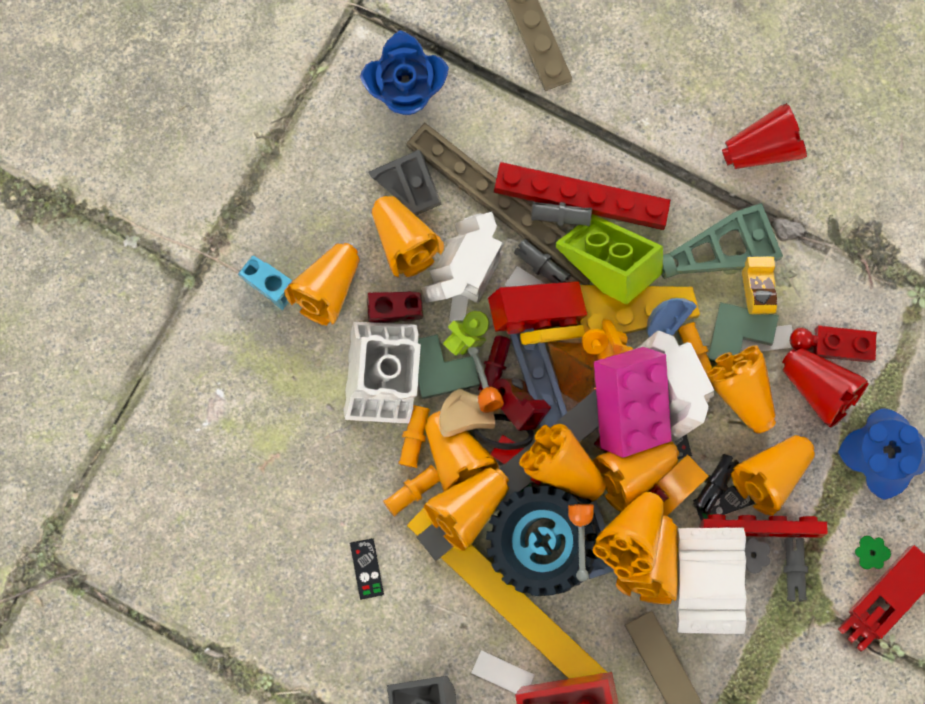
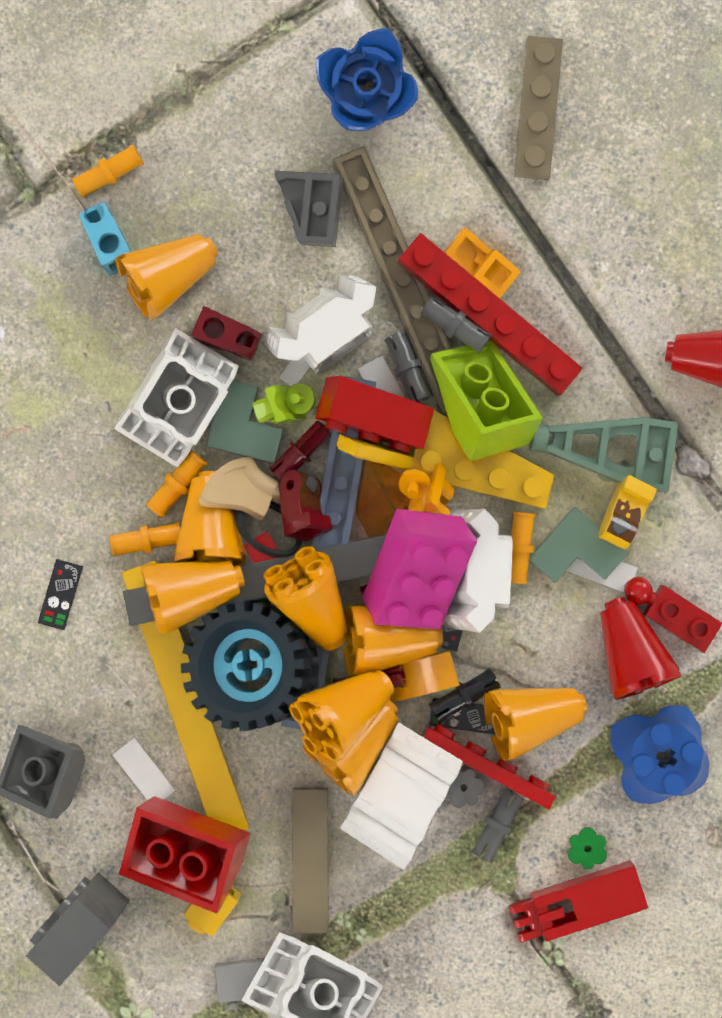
camera: 25 degrees right, 10 degrees up
(243, 233) = (107, 171): none -> light orange pin
(404, 237) = (274, 265): light orange cone -> none
(489, 398) = (273, 485): orange hinge -> none
(560, 161) = (481, 262): none -> light orange slope
(581, 516) = (293, 666): hinge -> none
(669, 316) = (509, 496): medium blue tile -> none
(745, 387) = (548, 612): light orange cone -> none

